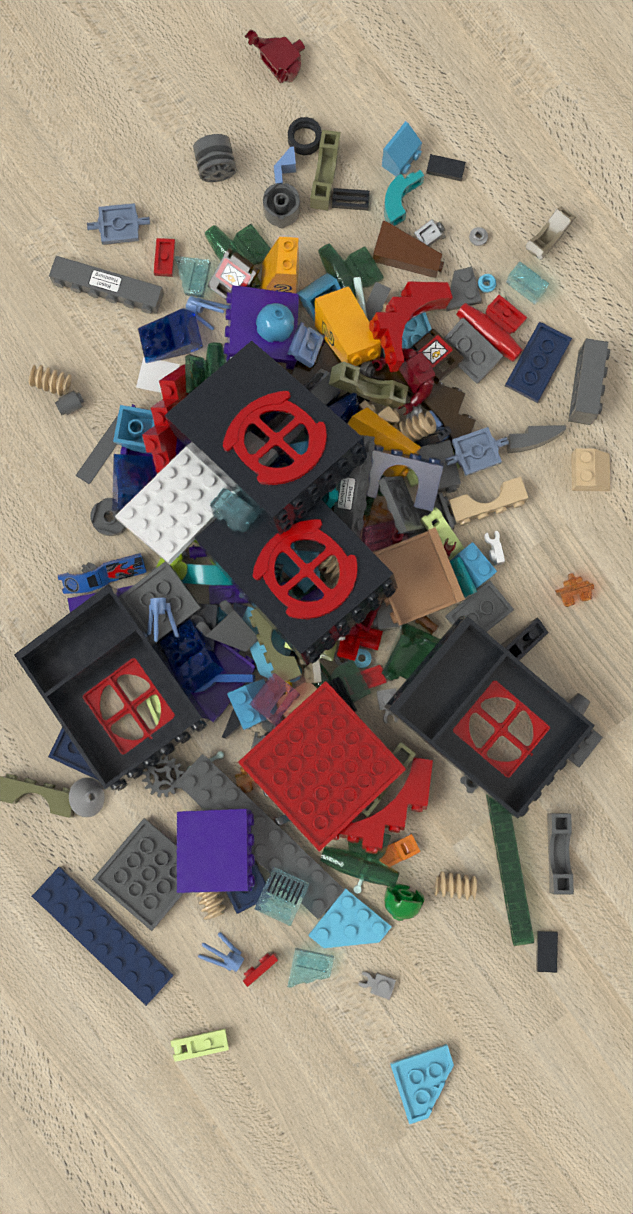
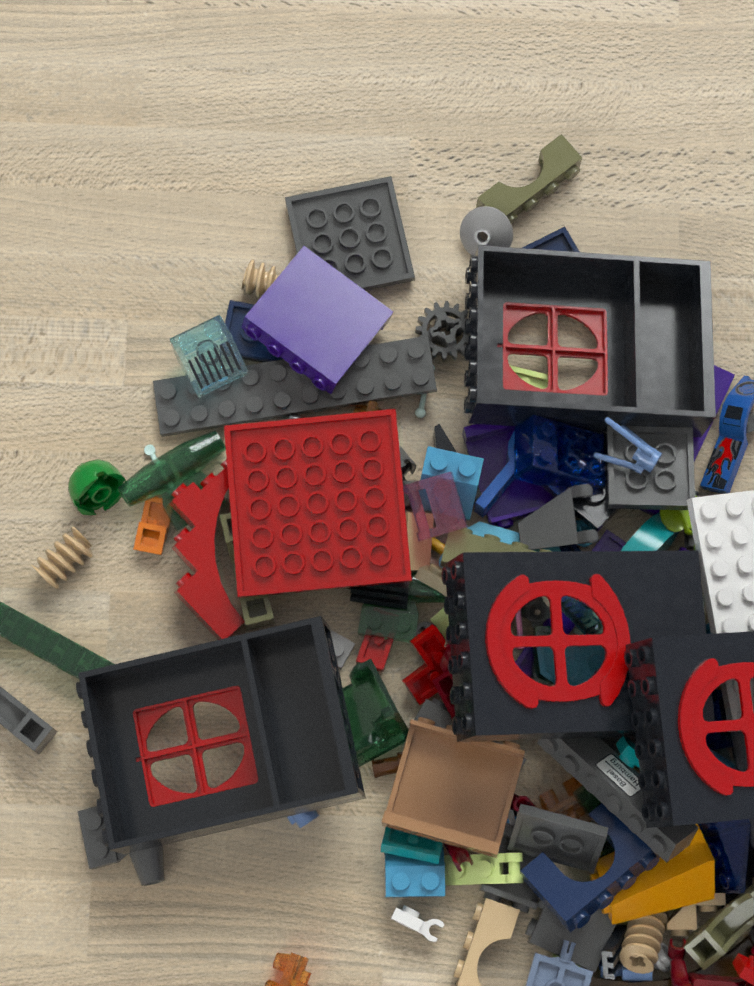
camera: 125 degrees right, 5 degrees down
(102, 935) = (321, 147): dark blue plate -> none
(200, 1044) = (124, 162): yellowish green plate -> none
(231, 961) = (184, 258): medium blue plant -> none
(233, 510) = (698, 615): clear light blue brick -> none
(254, 973) = (152, 291): red plate -> none
(309, 966) = (110, 334): clear light blue wing -> none
(349, 924) = (120, 412): medium azure plate -> none
(368, 658) = (400, 662): medium azure plate -> none
(378, 535) = (540, 778): clear pink plate -> none
(381, 984) = (26, 395): light grey plate -> none
(484, 607) = (353, 842): dark grey plate -> none
(525, 639) = (277, 862): black slope -> none

